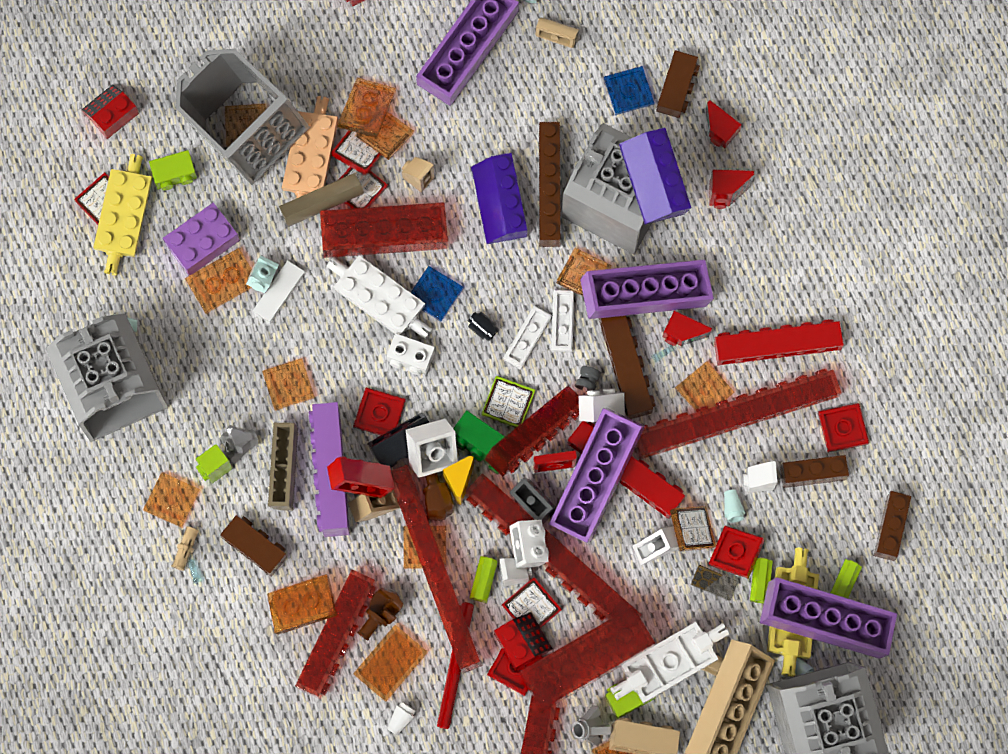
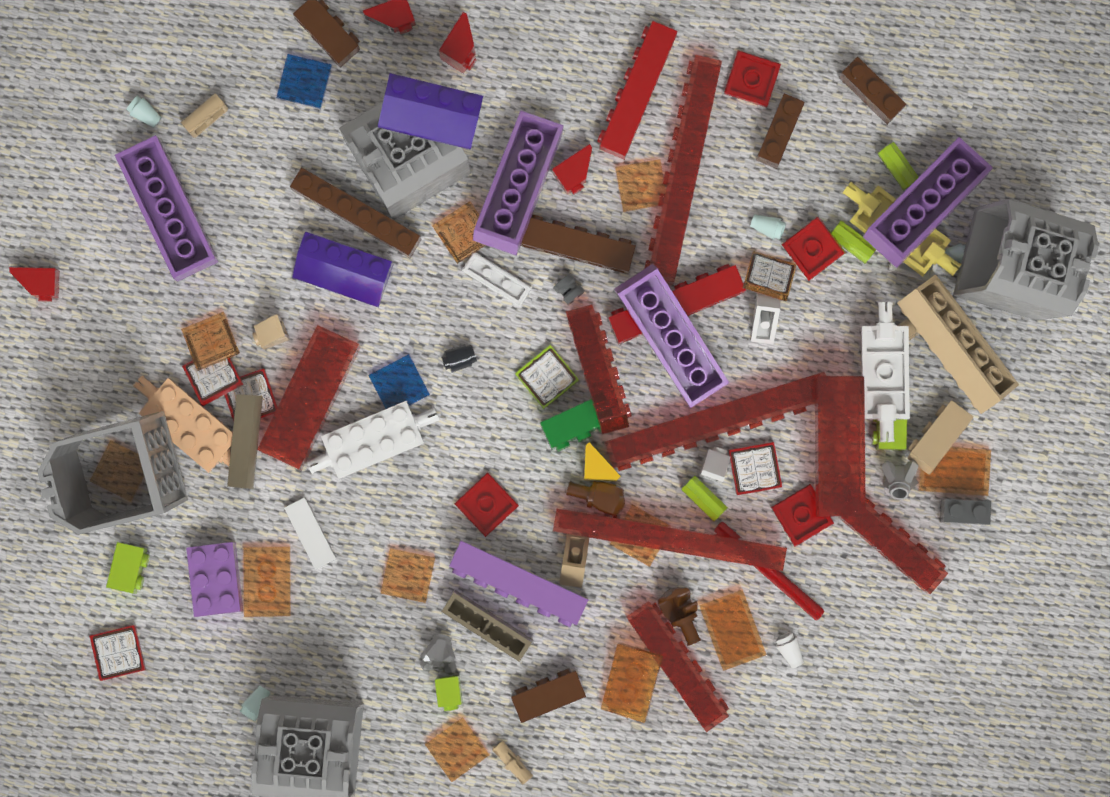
camera: 60 degrees left, 10 degrees up
(110, 111) = (28, 595): red slope -> none
(122, 213) = (143, 641): light yellow plate -> none
(196, 579) = (540, 766): clear light blue piece -> none
(262, 274) = (285, 540): light aqua brick -> none
(360, 477) = (547, 560): red brick -> none
(366, 107) = (174, 344): clear orange tile -> none
(393, 444) = (528, 498): black brick -> none
(410, 354) = (447, 443): white brick -> none
(431, 447) = (555, 475): white brick -> none
(522, 640) = (784, 495): red slope -> none
(527, 337) = (493, 321): white tile -> none
(529, 543) = (701, 437): white brick -> none
(533, 500) = (658, 408): dark grey brick -> none
(554, 461) = (633, 366): red tile -> none
(593, 403) = (601, 295): white brick -> none
(661, 354) = (583, 204): clear light blue piece -> none
(714, 582) = (829, 286): clear smoke tile -> none
(761, 477) = (758, 184): white slope -> none

